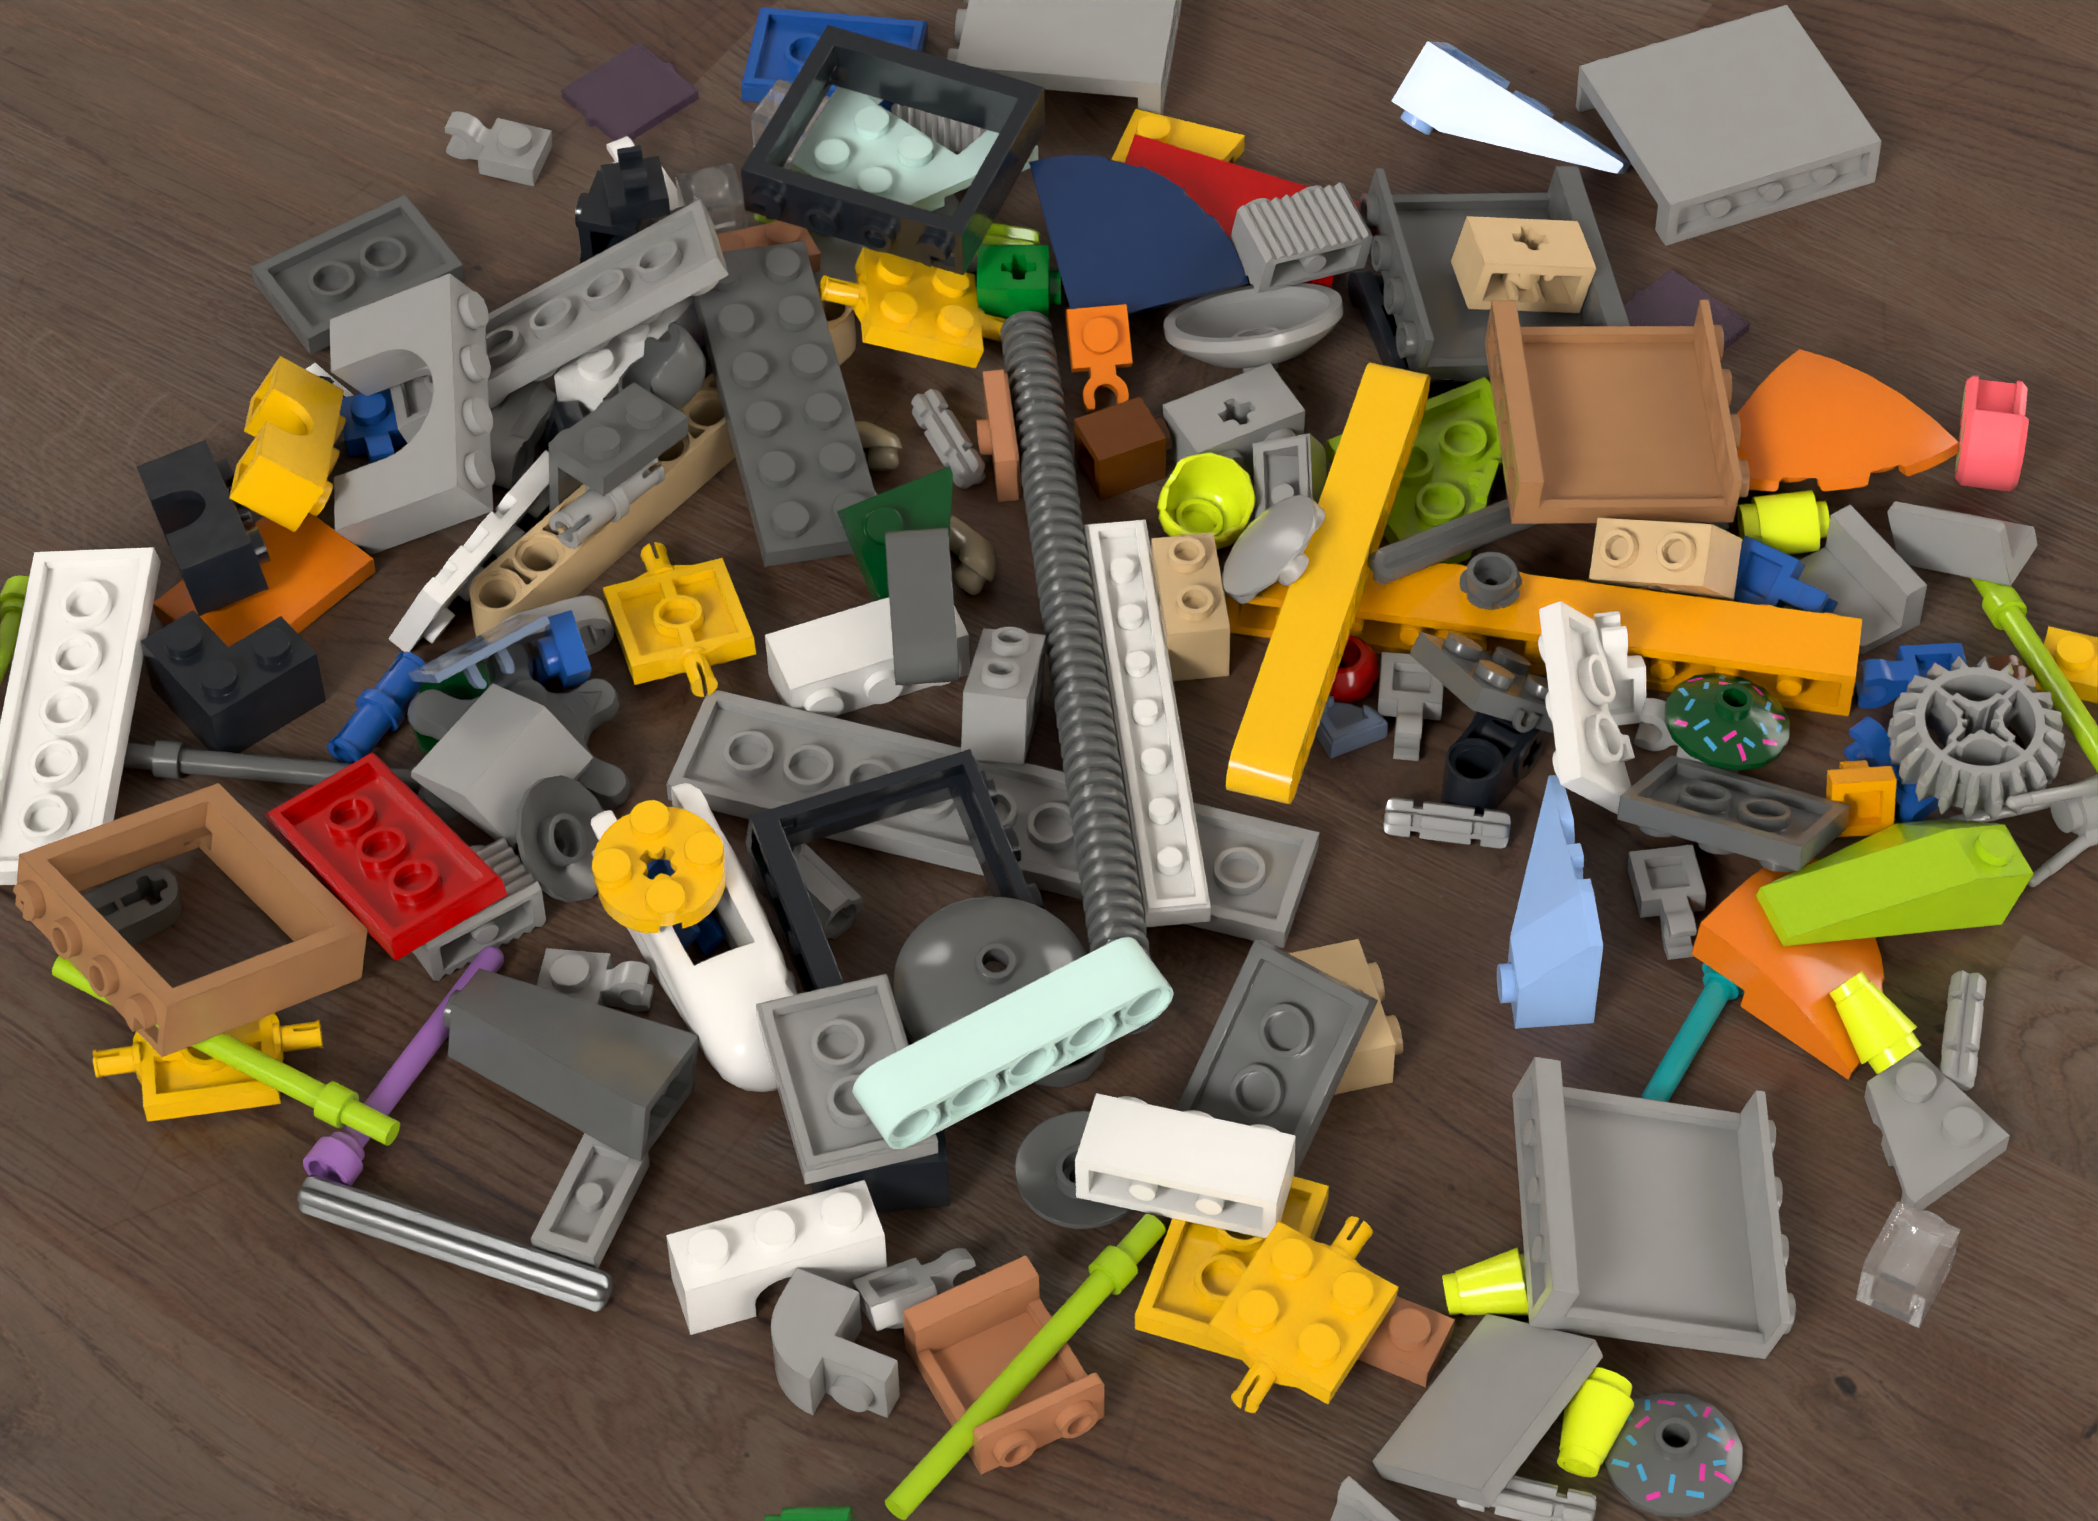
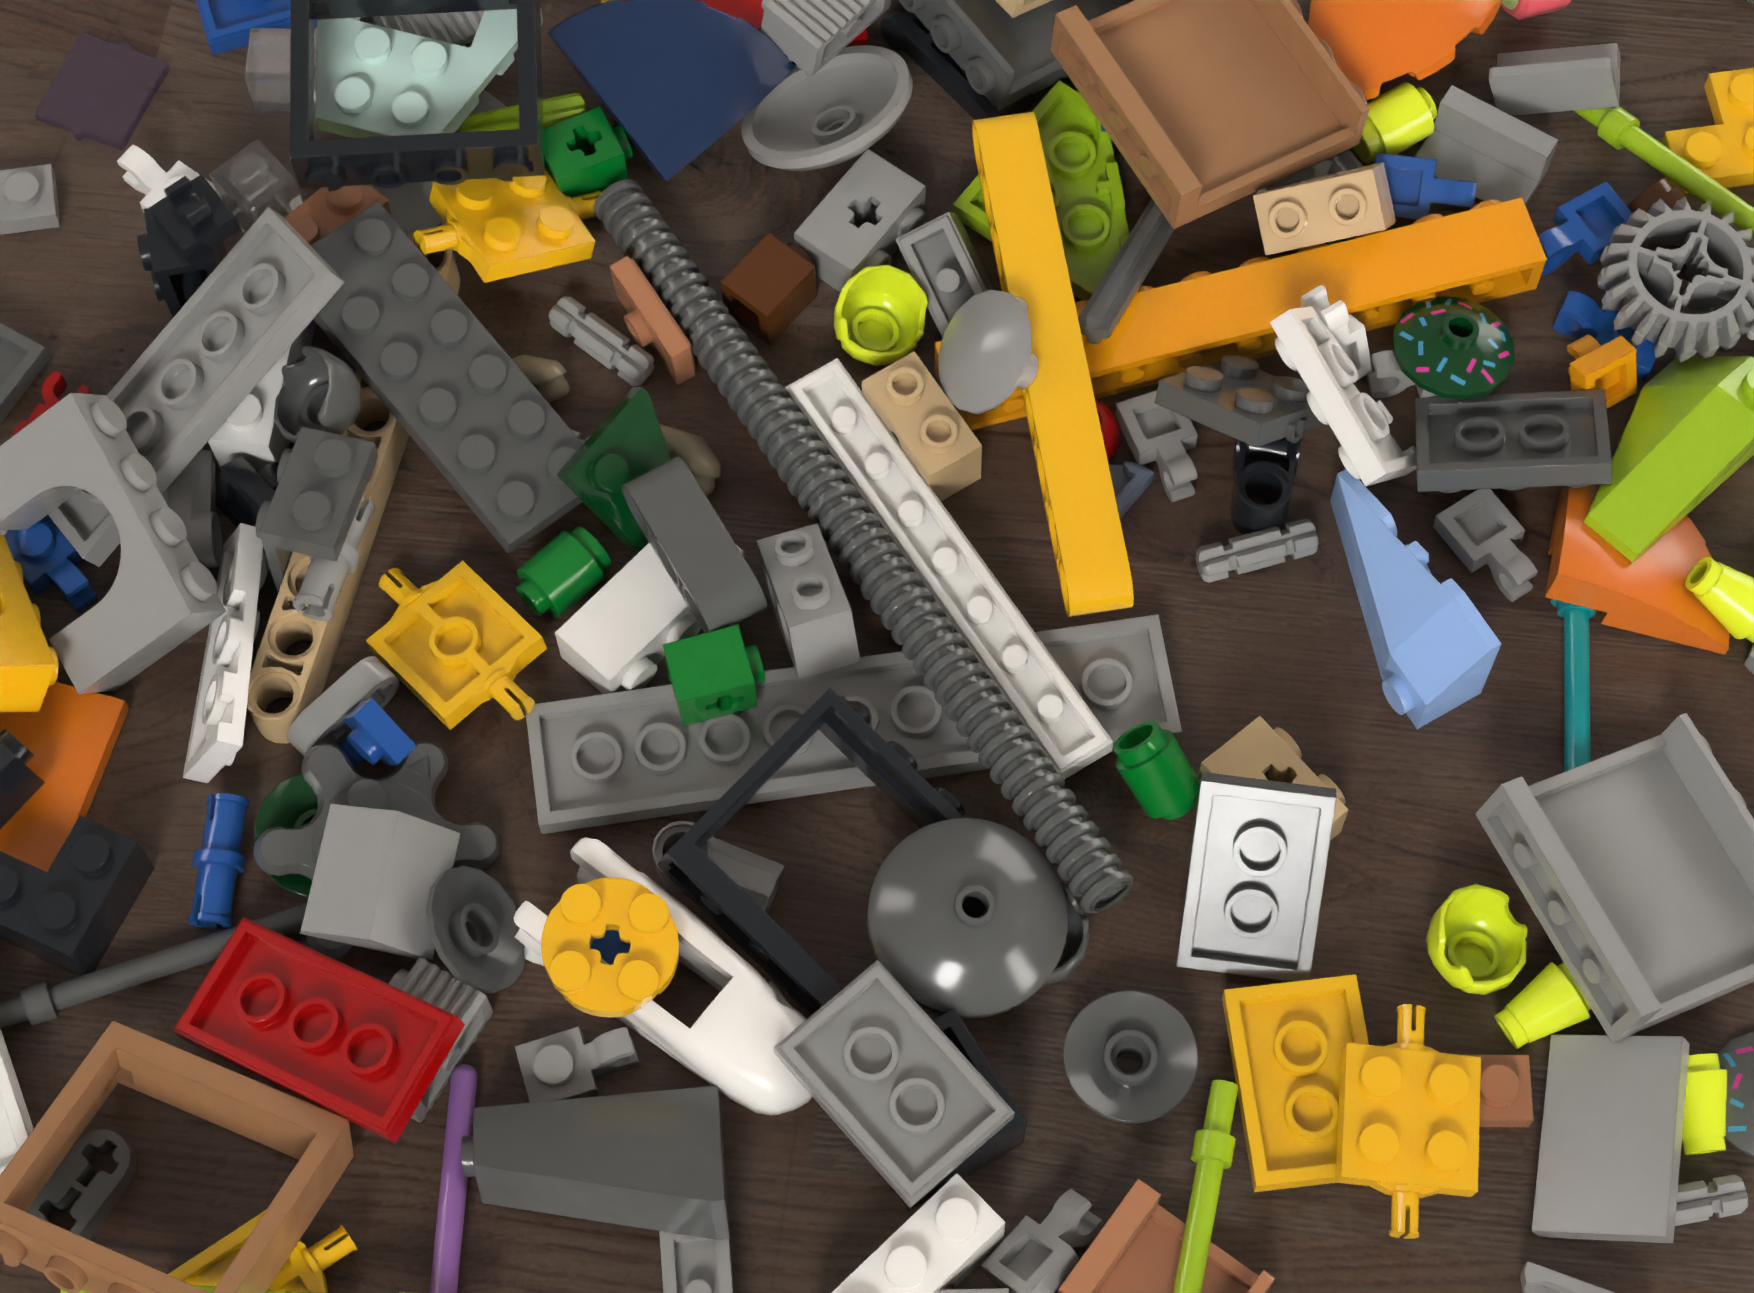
camera: 25 degrees left, 15 degrees up
(479, 648) = (301, 776): sand blue piece -> none
(802, 597) = (562, 572): none -> green brick
(882, 717) = (713, 674): none -> green brick
(1012, 1042) = (1040, 989): light aqua beam -> none
(1100, 345) = (697, 191): orange plate -> none
(1185, 1165) = (1234, 1020): white brick -> none
(1230, 940) = (1156, 771): none -> green brick
(1458, 1201) = (1477, 940): none -> neon yellow hair
(1491, 581) = (1194, 286): dark grey plate -> none

